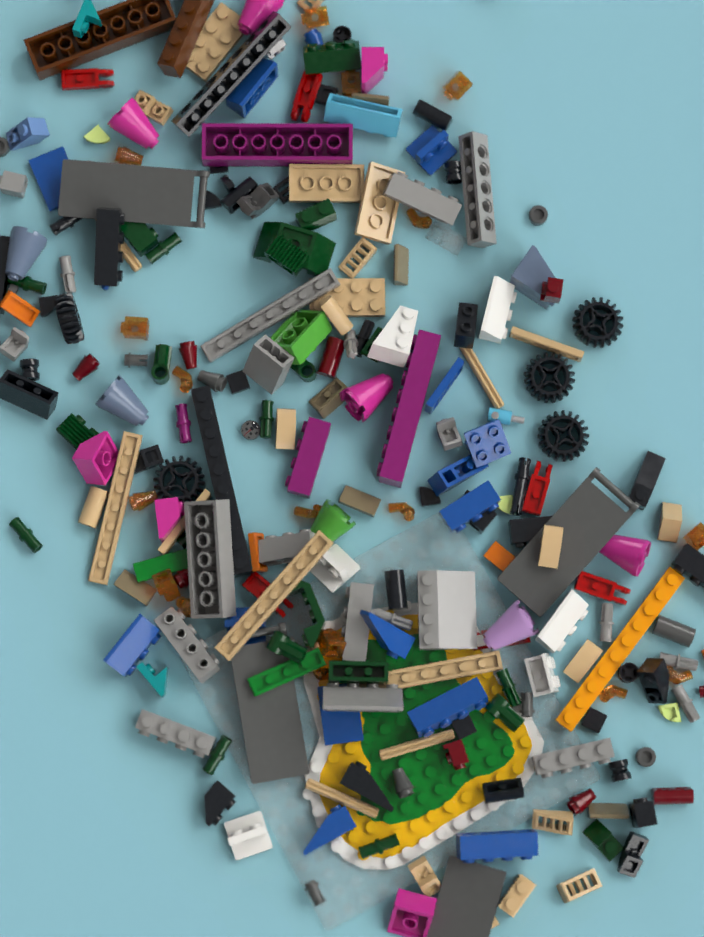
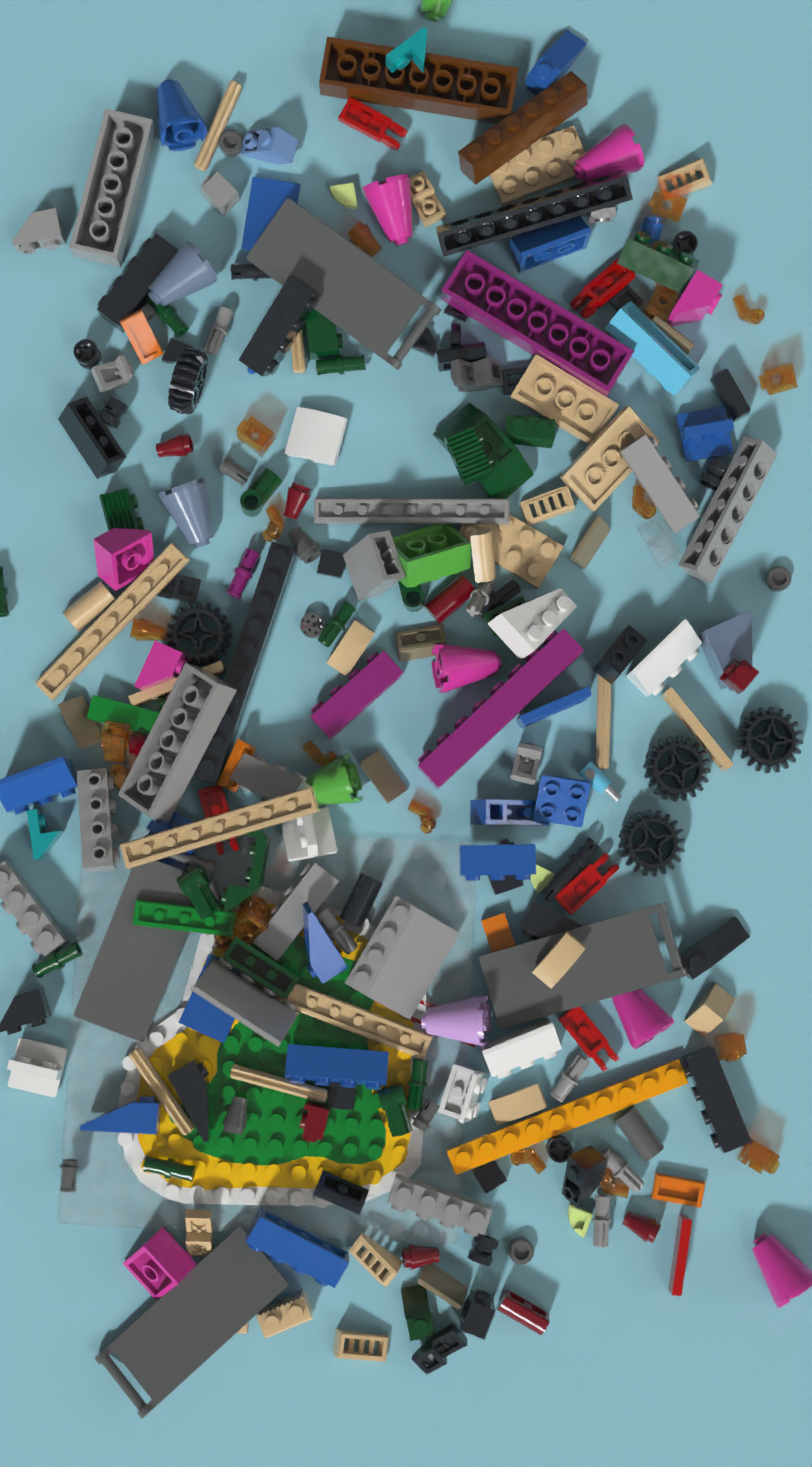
camera: 30 degrees right, 5 degrees up
(176, 304) = (316, 436): none -> white slope
(409, 57) = (747, 314): none -> clear orange arm
(428, 497) = (461, 818): black tile -> none

